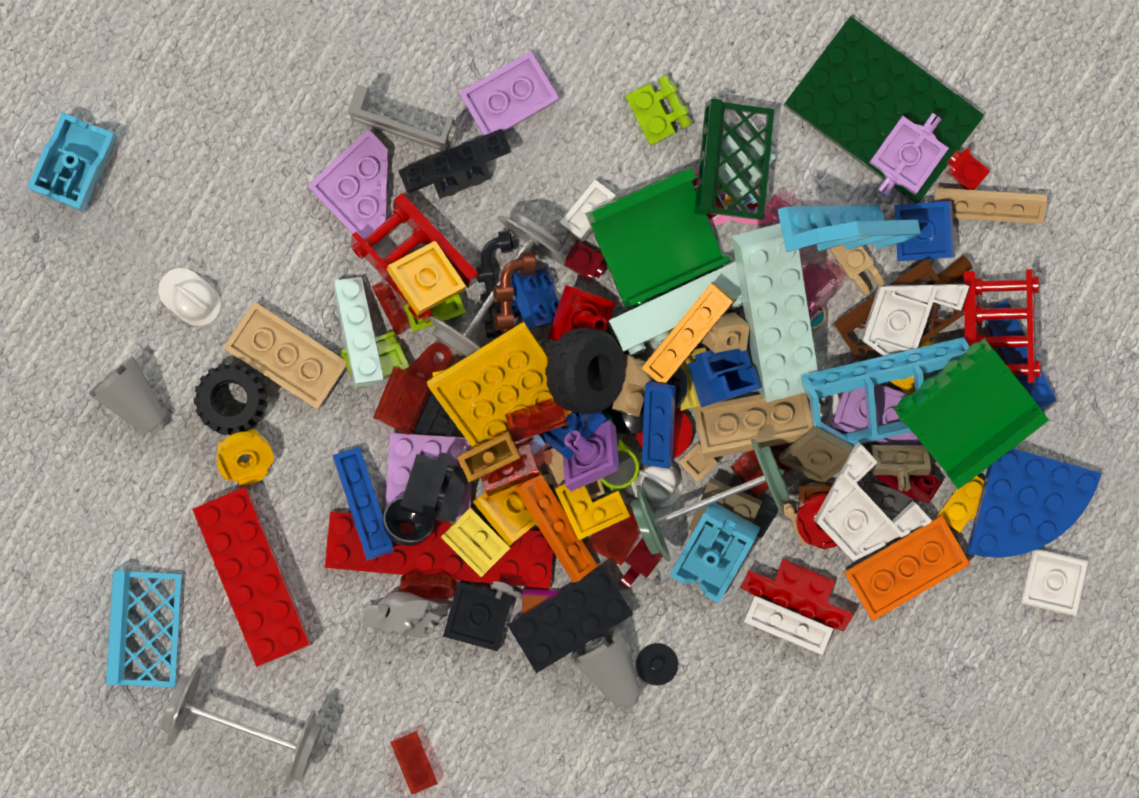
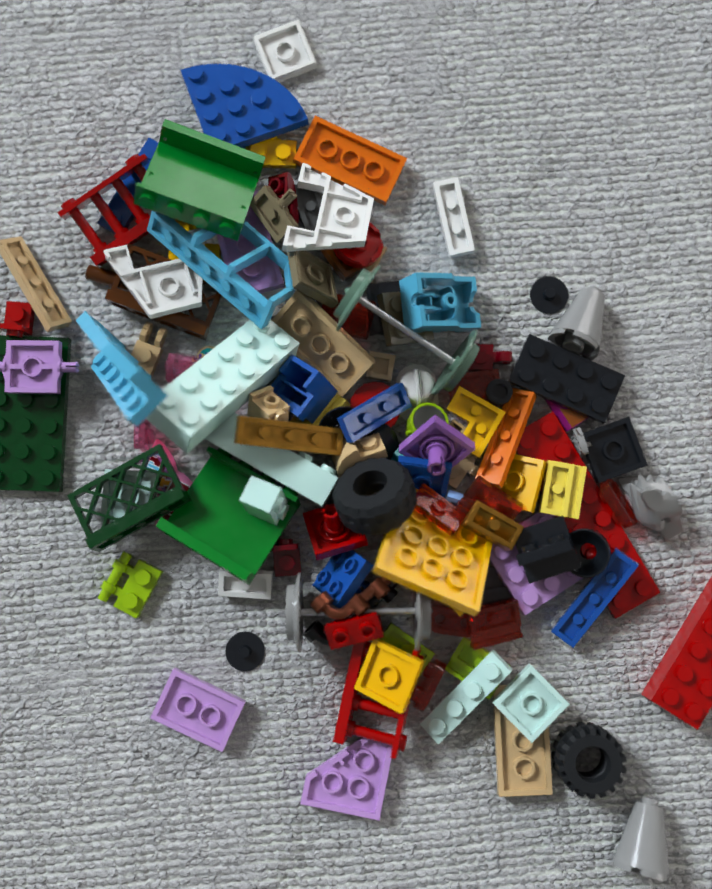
camera: 120 degrees left, 0 degrees up
(189, 297) = (529, 848): white piece -> none
(243, 443) = (614, 722): yellow plate -> none
(315, 383) = (530, 703): none -> light aqua plate
(359, 114) = (287, 825): light grey panel -> none
(456, 167) = (283, 711): black bracket -> none
(484, 275) = (354, 630): none -> red bracket
(529, 169) = (245, 651): none -> black piece
(600, 549) = (498, 392): none -> black tile
(647, 275) = (264, 500): none -> light aqua brick
(799, 591) = (421, 225): red bracket -> none
(935, 227) = (72, 307): blue plate -> none

